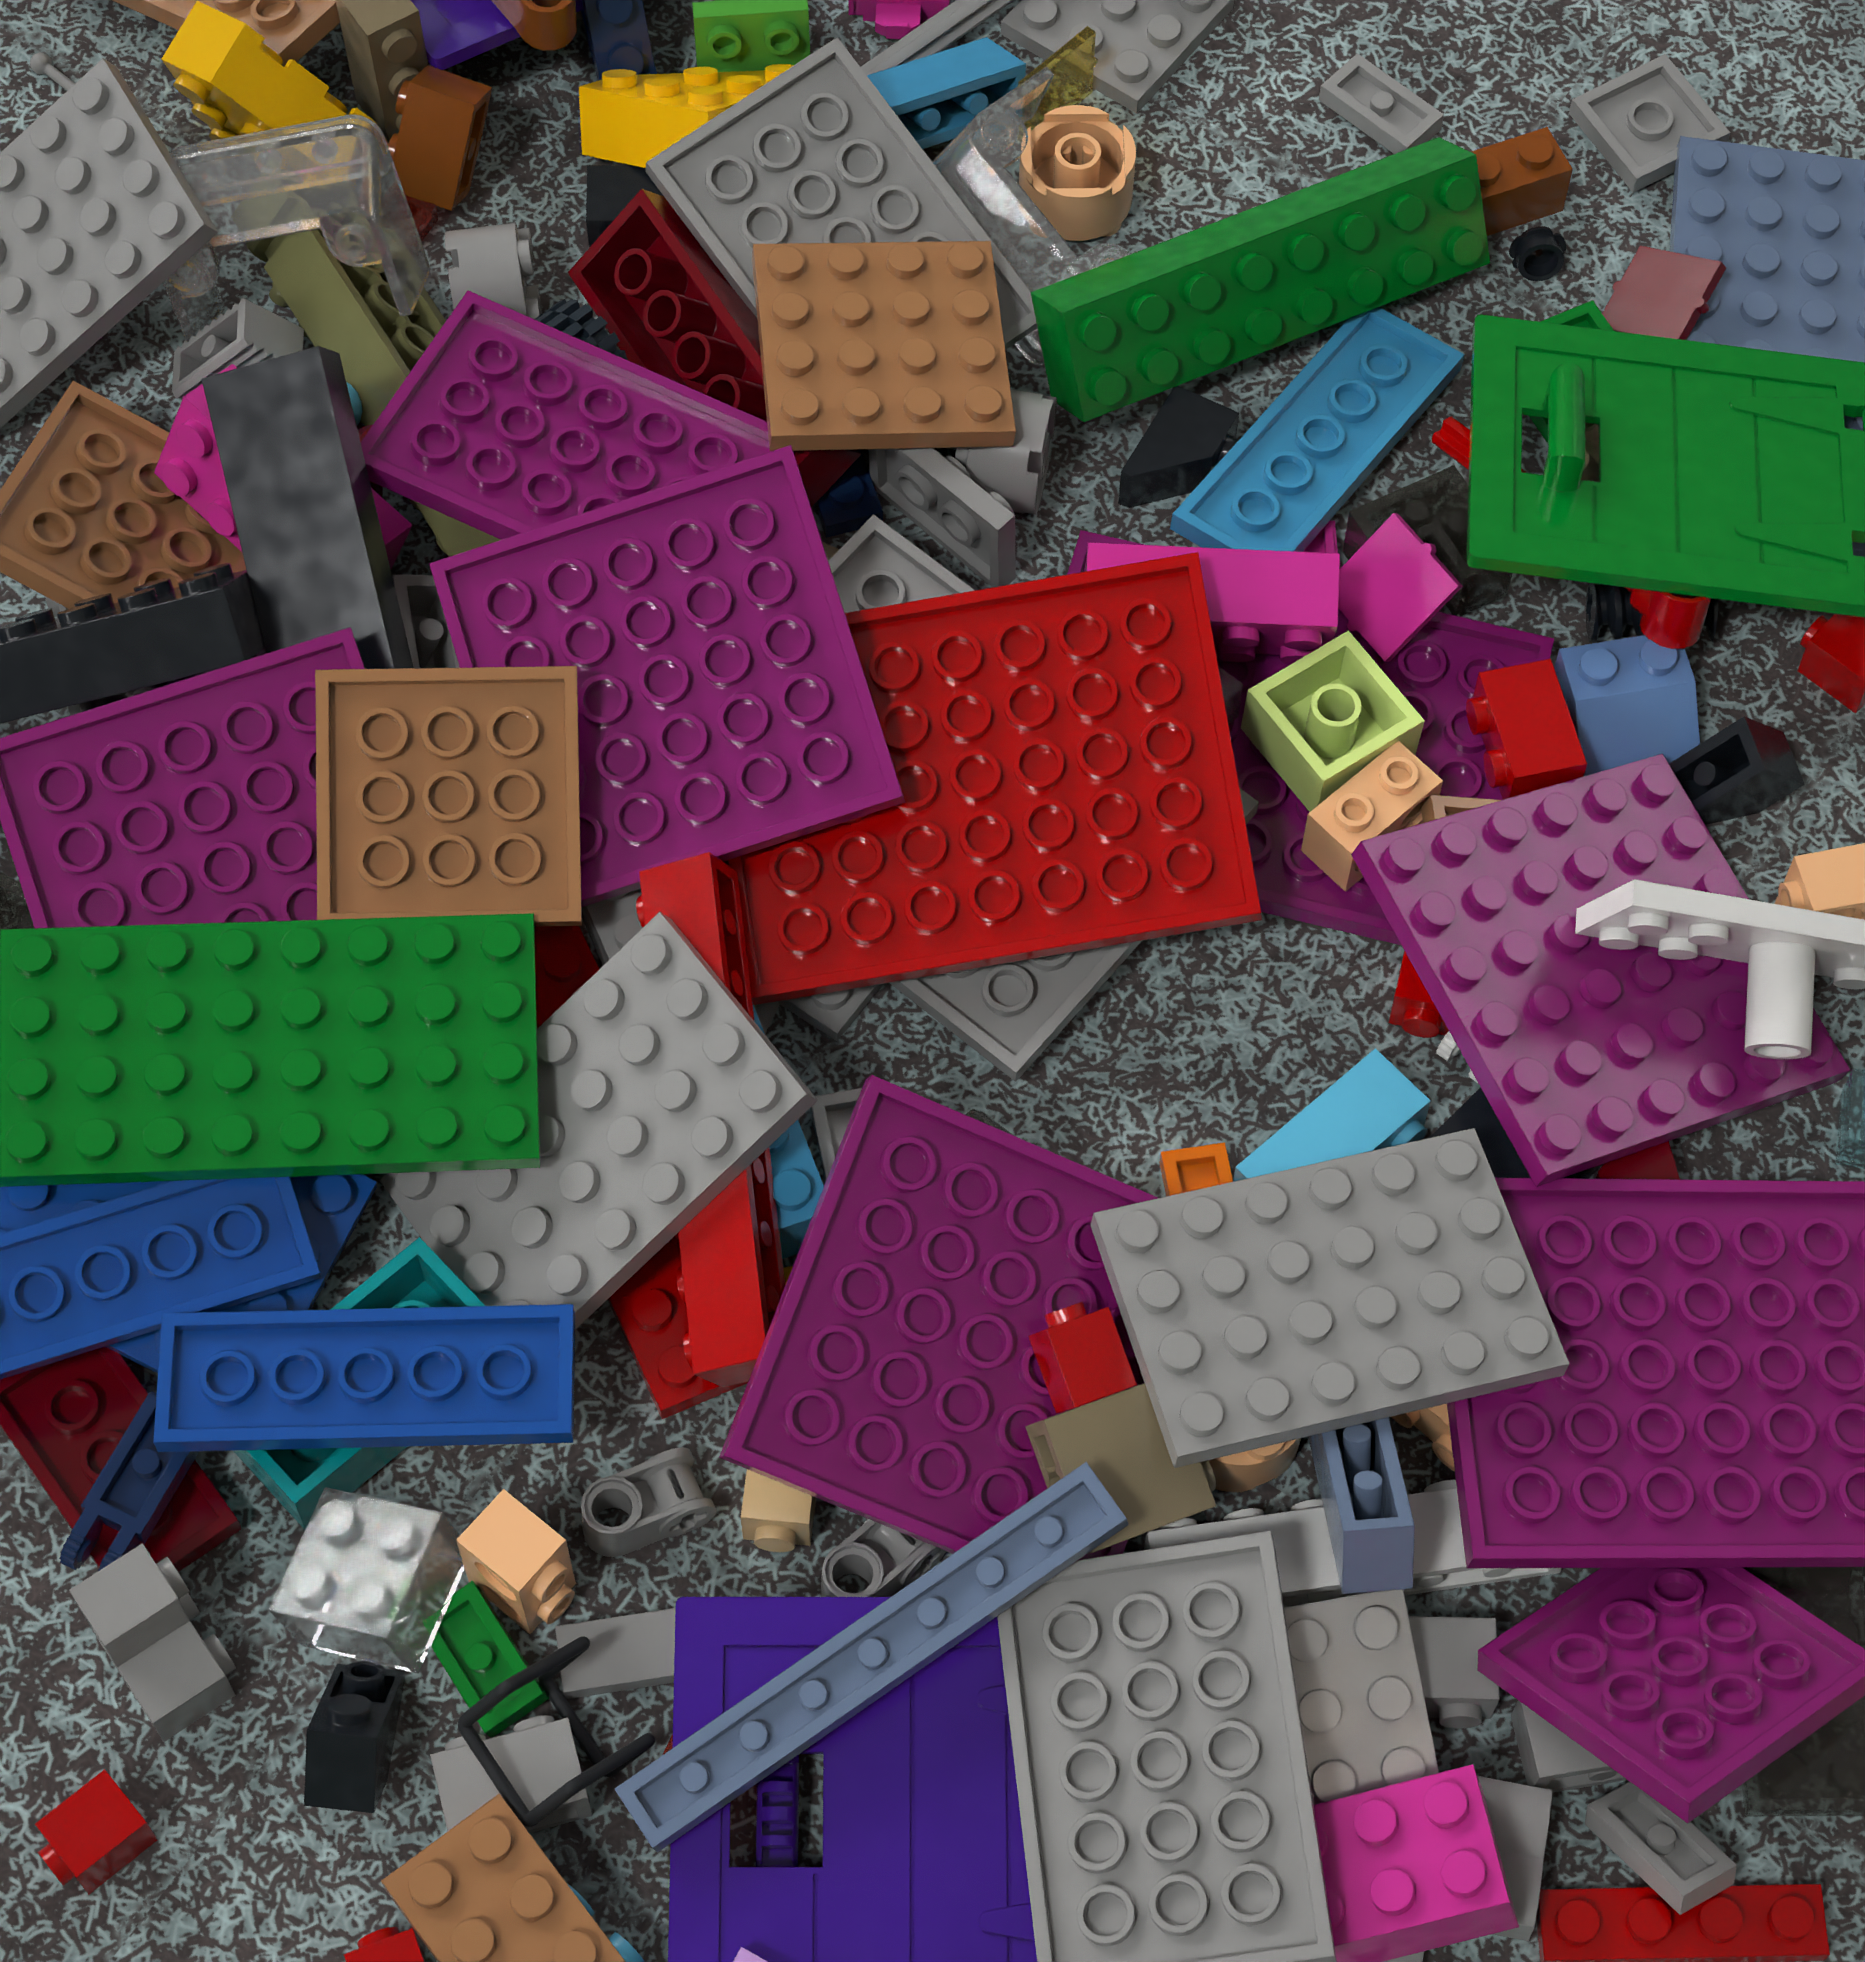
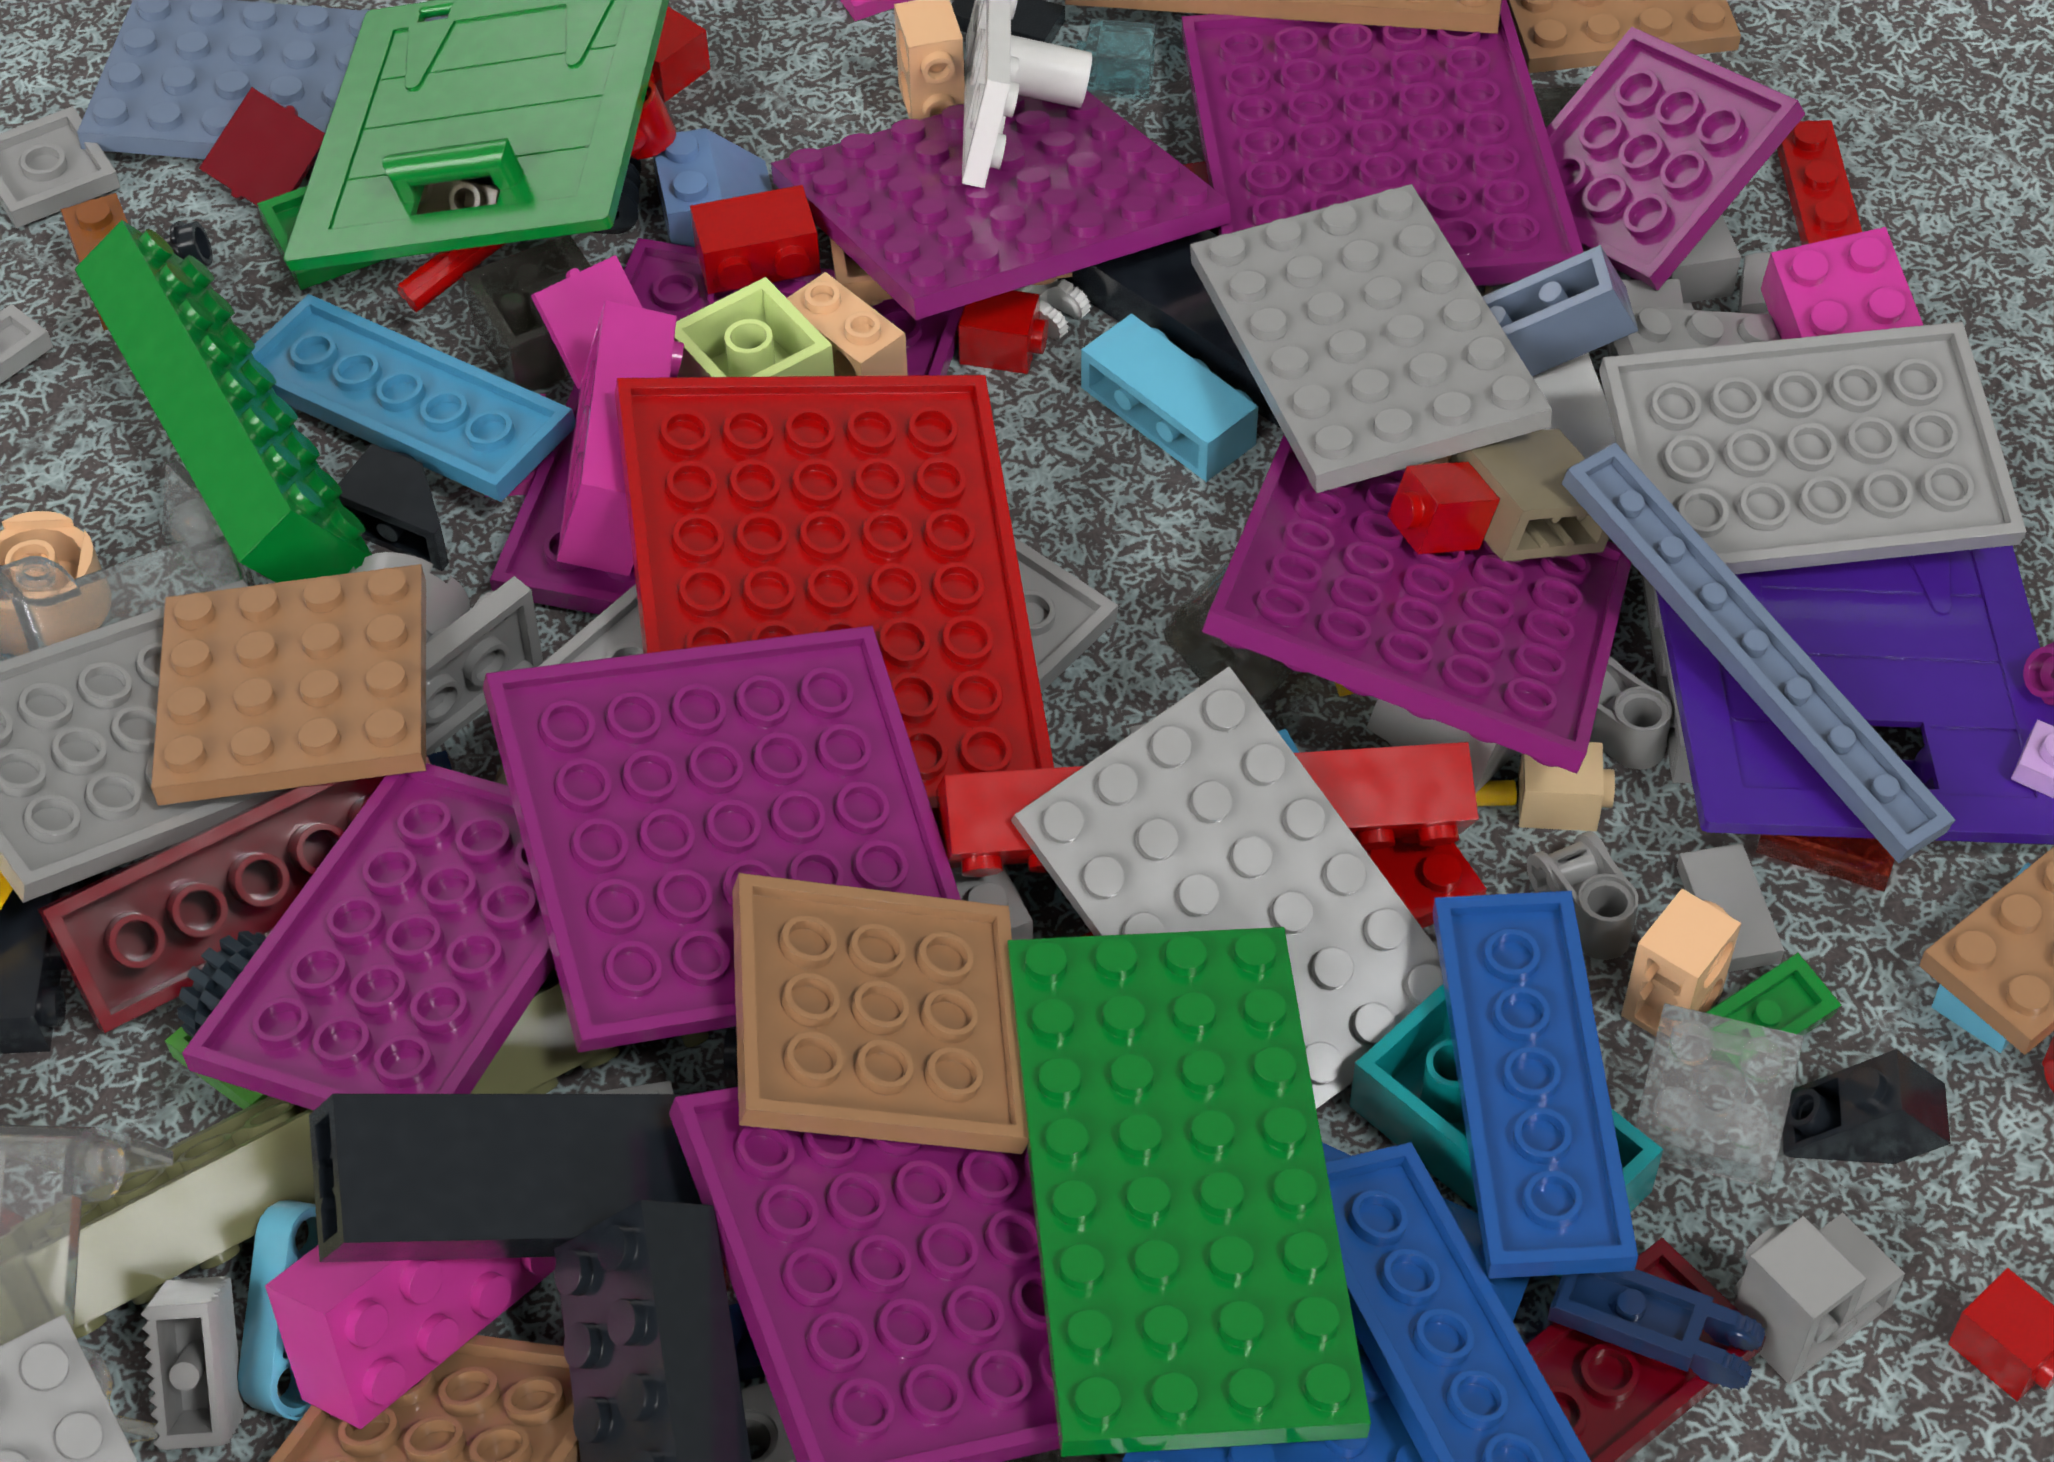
camera: 90 degrees left, 10 degrees down
(494, 265) = (117, 1086): light grey brick -> none
(533, 1757) = (1876, 973): light grey brick -> none
(545, 1671) = (1848, 916): black piece -> none
(1195, 1168) = (1207, 491): orange plate -> none
(1660, 1847) = (1776, 198): light grey plate -> none
(1738, 771) = (783, 120): black slope -> none

